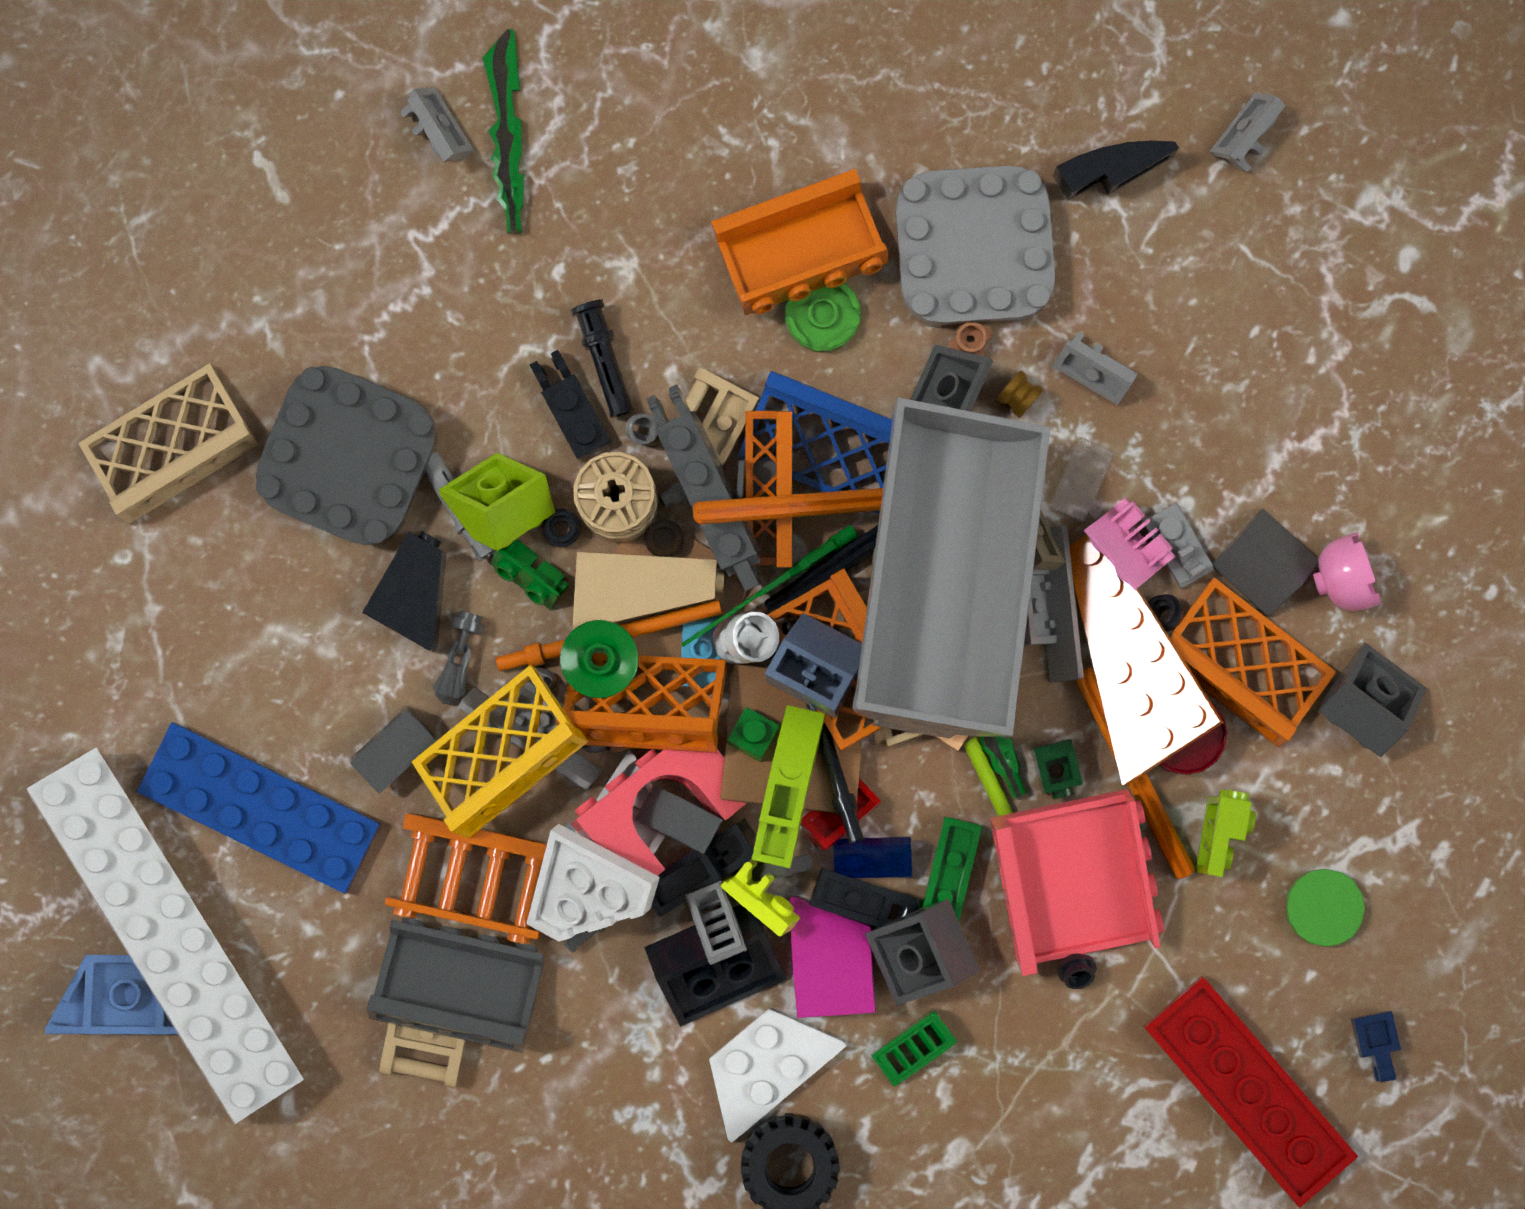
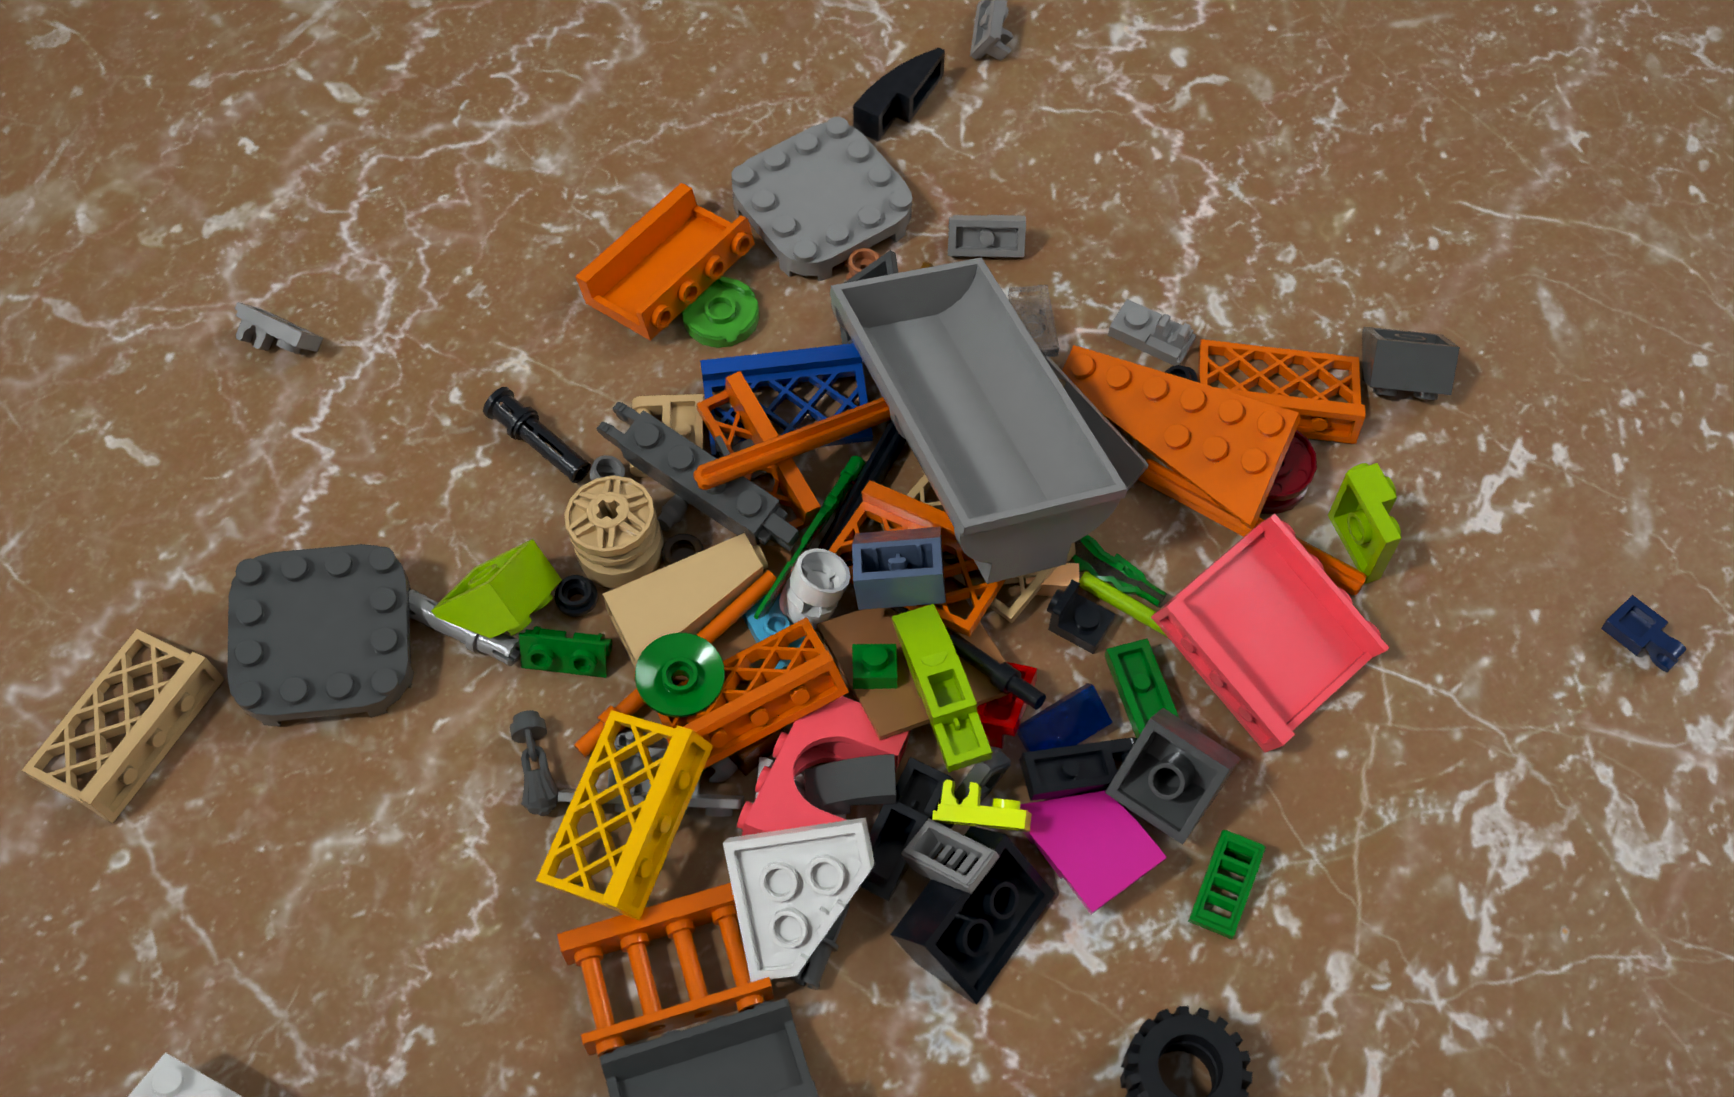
camera: 30 degrees left, 25 degrees down
(259, 807) = (388, 1032): blue plate -> none
(392, 749) = (508, 887): dark grey hinge -> none
(412, 591) = (451, 728): black slope -> none
(506, 133) = (347, 311): green sword -> none
(572, 409) = (524, 491): black hinge -> none
(766, 1066) = (1091, 993): white wing -> none
(944, 775) = (1078, 618): none -> black bracket
(1063, 754) = (1178, 551): dark green brick -> none
(1077, 971) = (1328, 721): black plate -> none
(1124, 545) = (1093, 340): bright pink hinge -> none
(1250, 1091) = (1570, 741): red plate -> none
(1265, 563) = (1235, 310): dark grey slope -> none
(1324, 907) = (1501, 547): bright green tile -> none
(1347, 575) = (1313, 269): bright pink cylinder -> none

